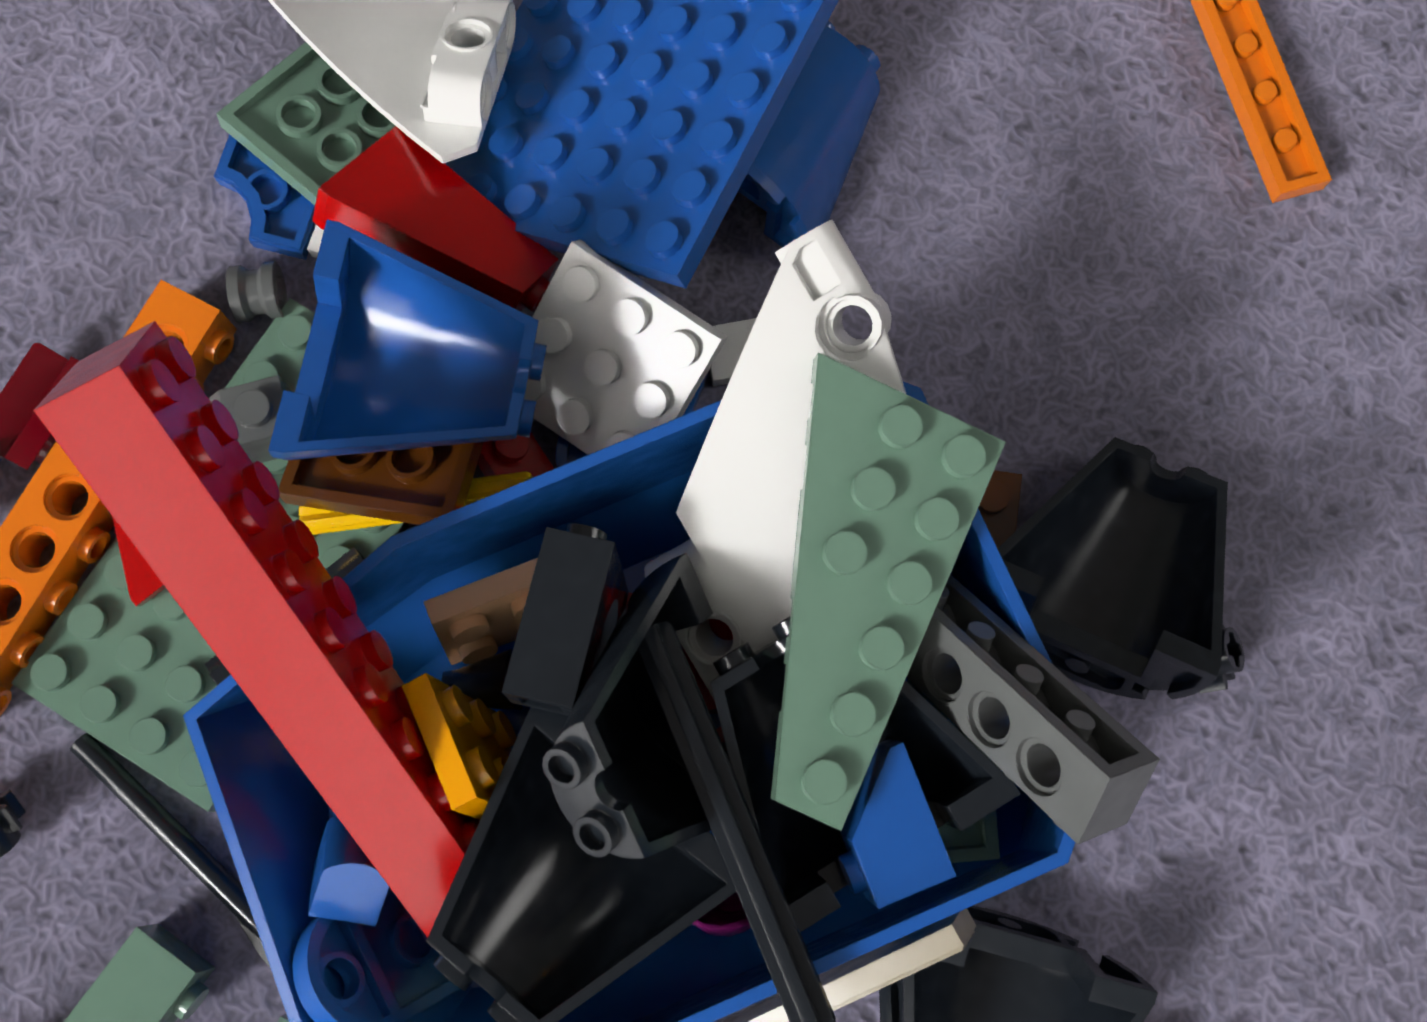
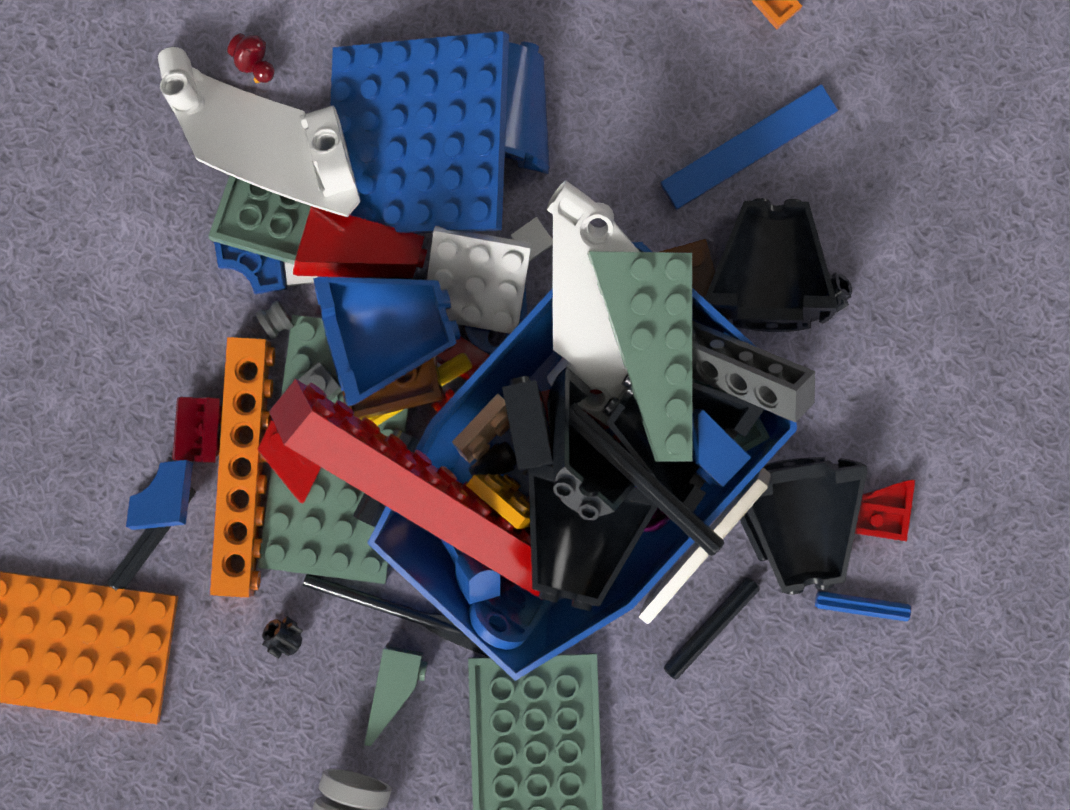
camera: 20 degrees left, 10 degrees up
(1153, 361) = (748, 147): none -> blue tile

